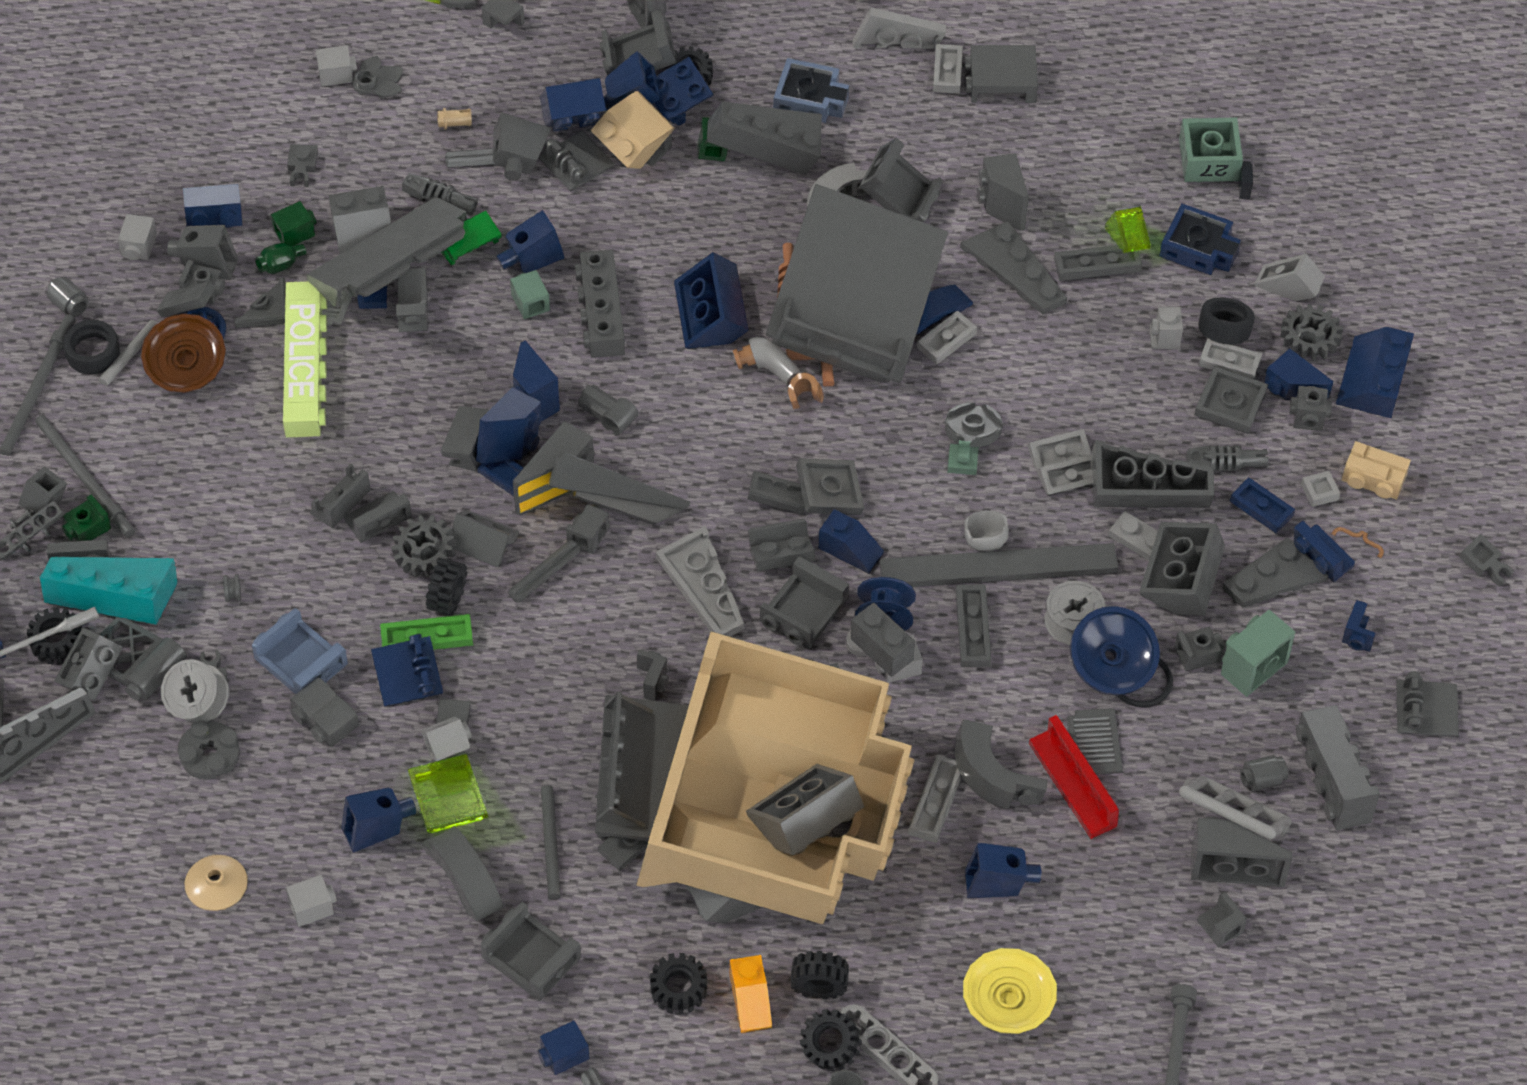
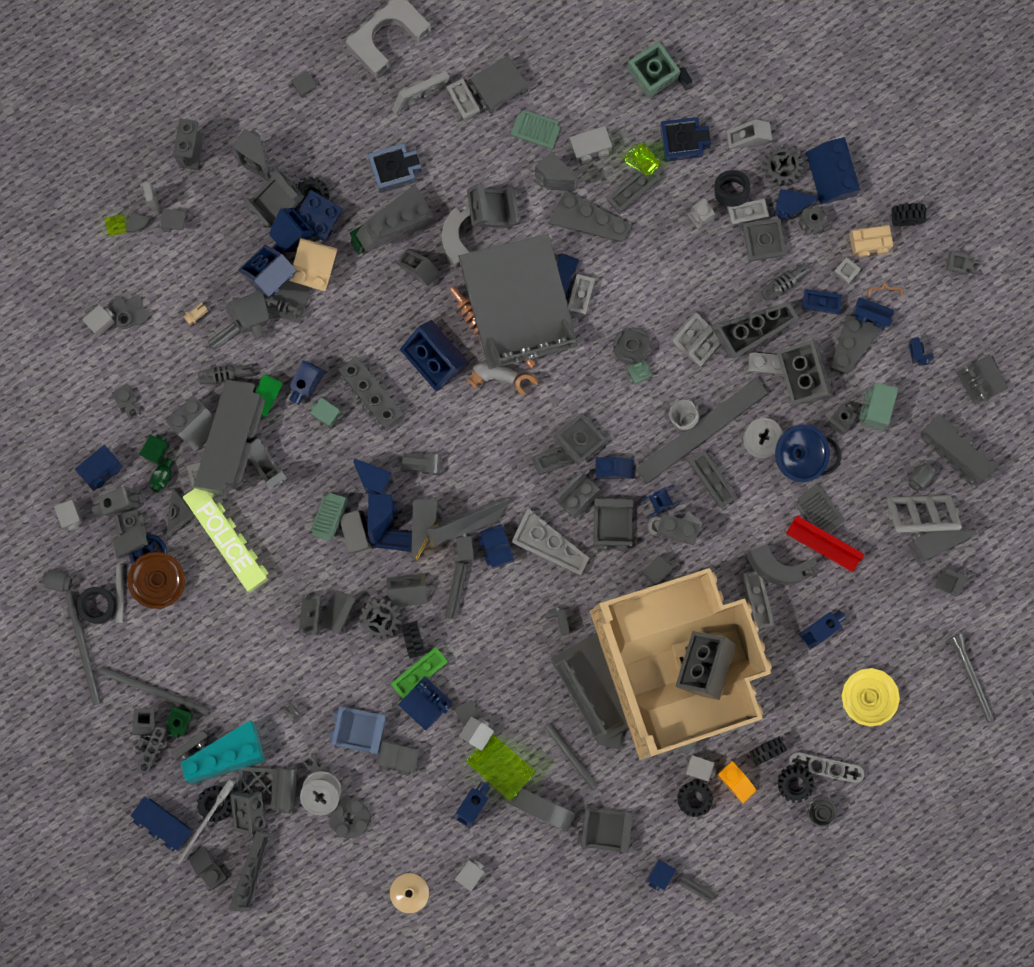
camera: 30 degrees left, 25 degrees up
(447, 403) = (329, 516): none -> sand green window
(633, 548) = (496, 546): none -> dark blue brick
(711, 948) = (700, 768): none -> light grey brick
(763, 206) = (418, 267): none -> dark grey slope
(1015, 137) = (536, 129): none -> sand green window
(1074, 188) = (590, 145): none -> light grey brick
(1446, 463) = (908, 214): none -> black tyre

